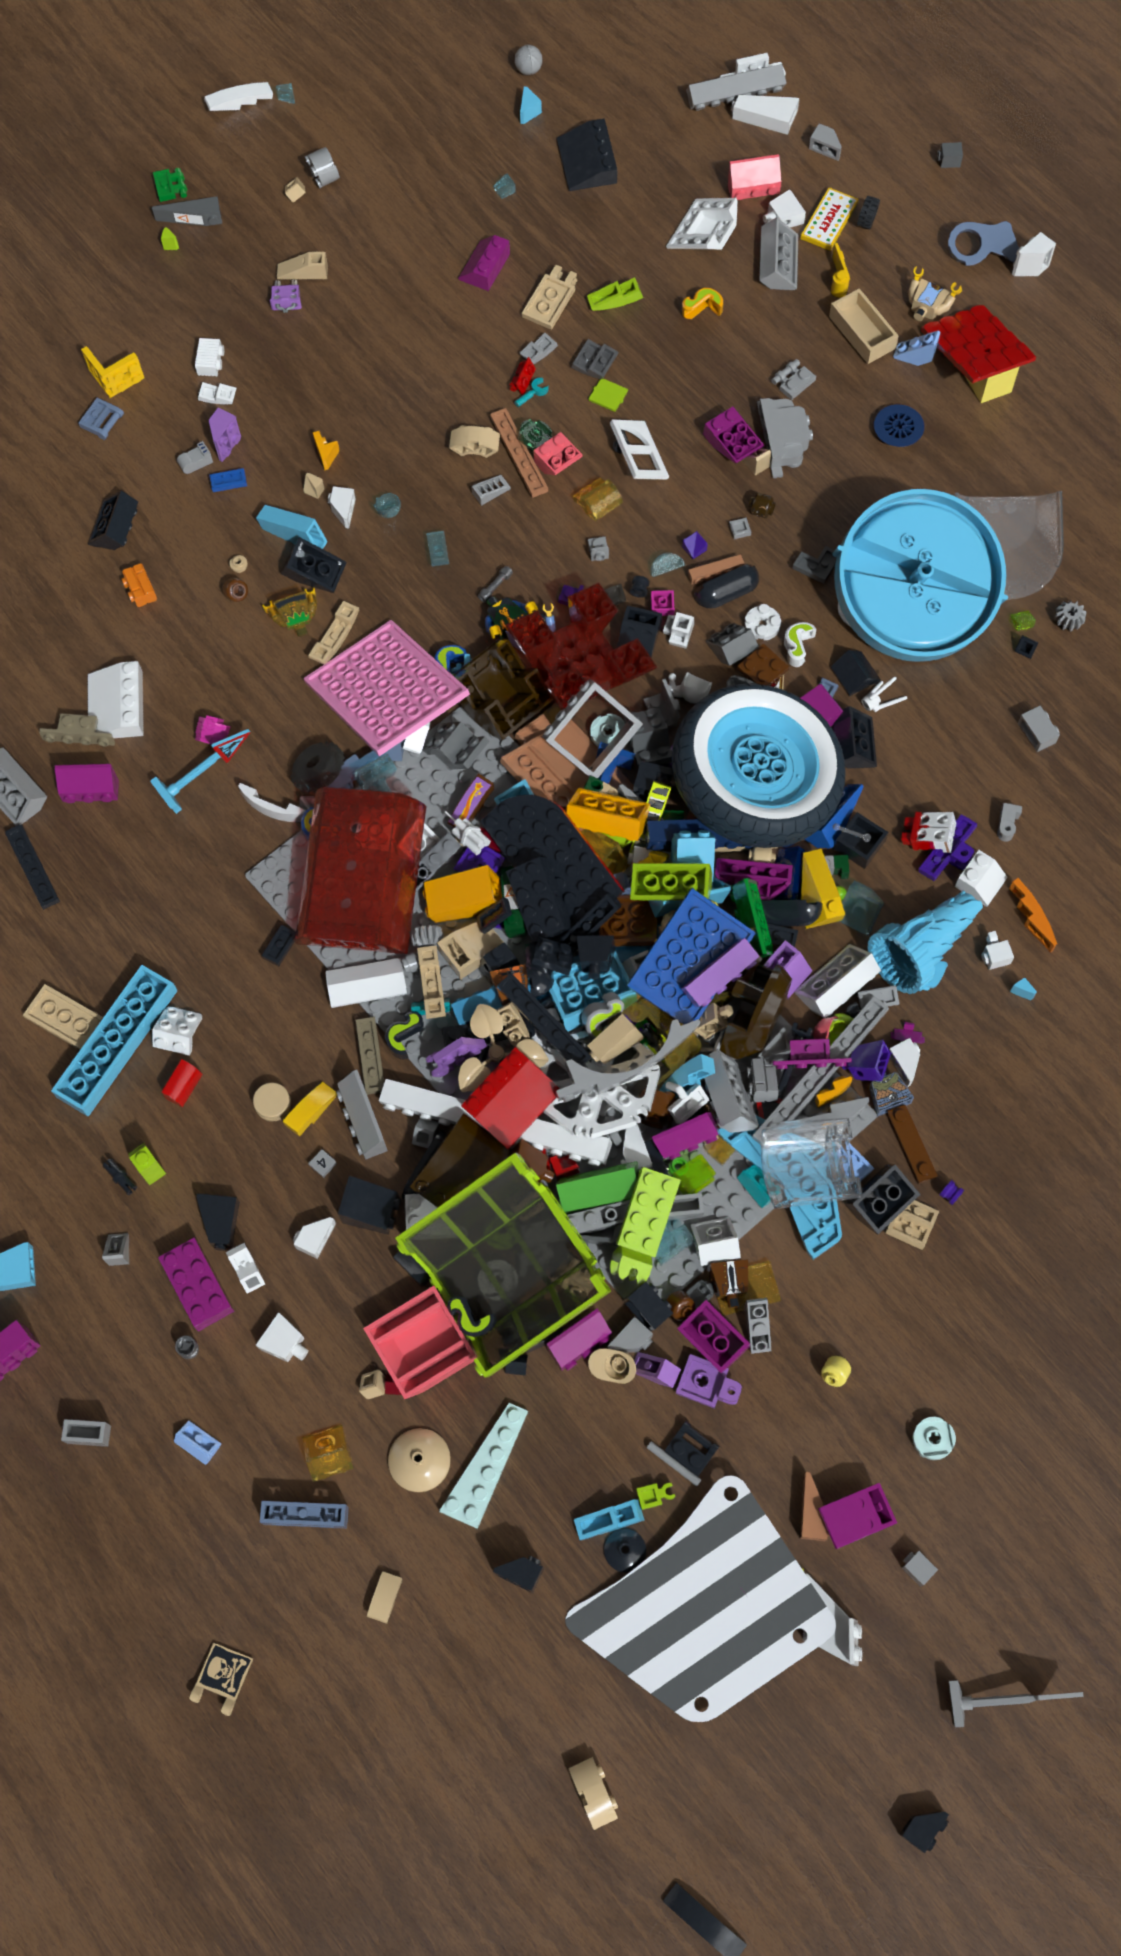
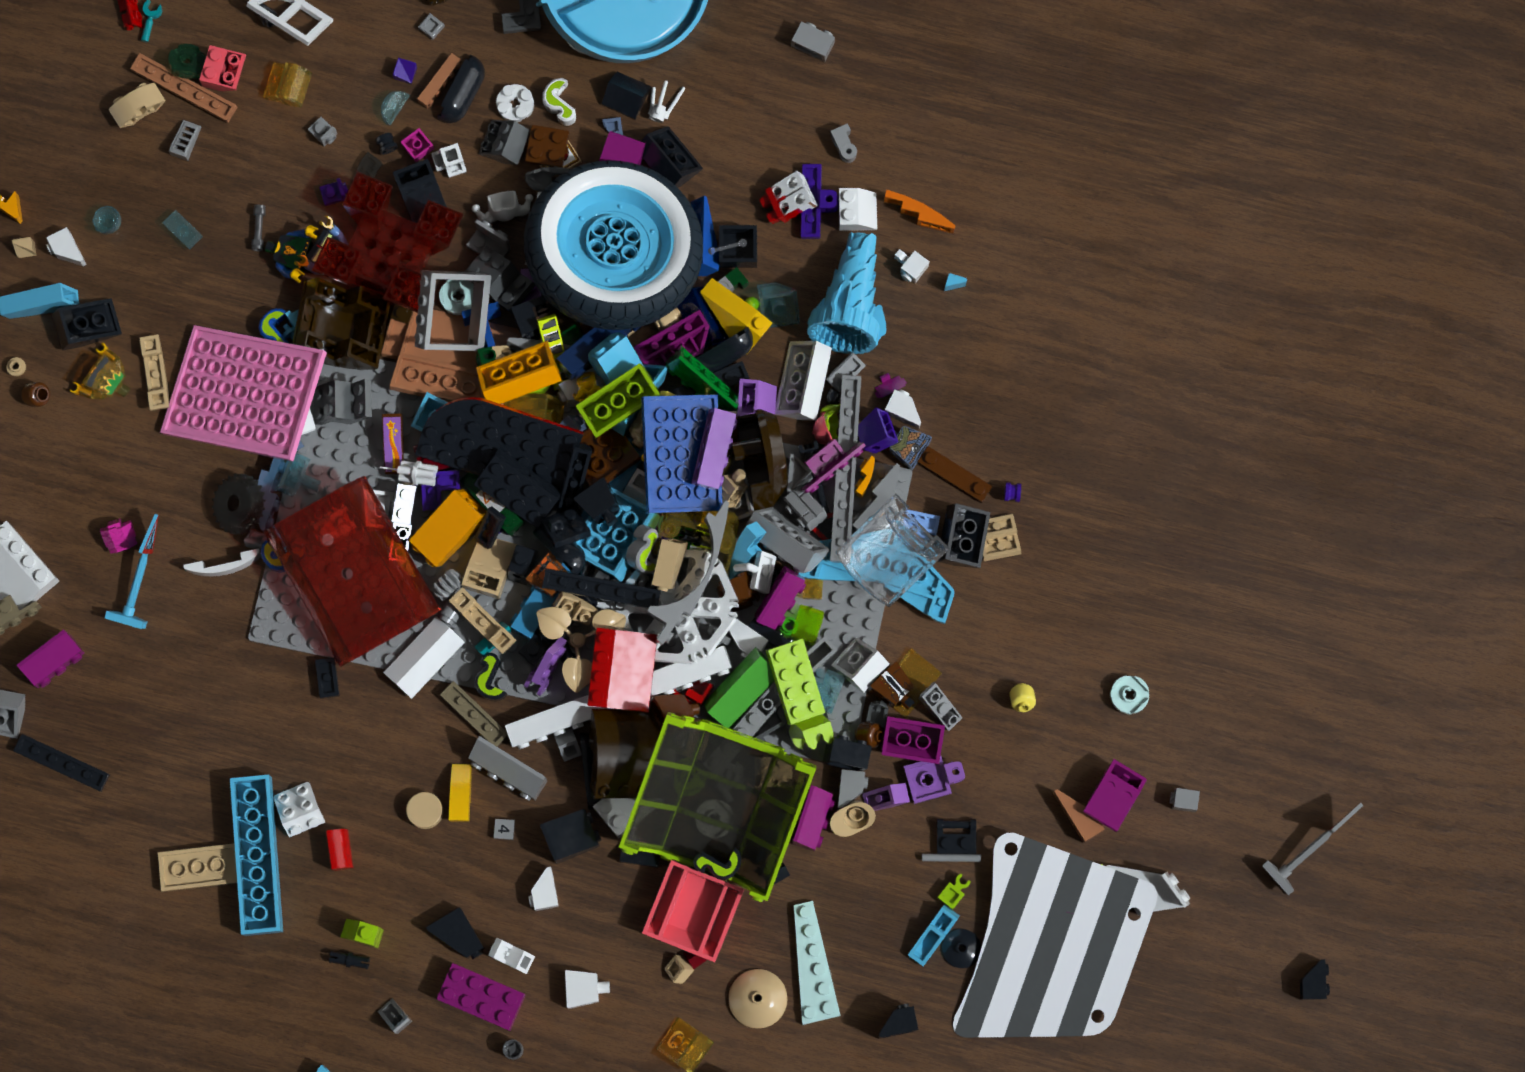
camera: 40 degrees left, 10 degrees up
(754, 1183) = (857, 596): teal slope -> none

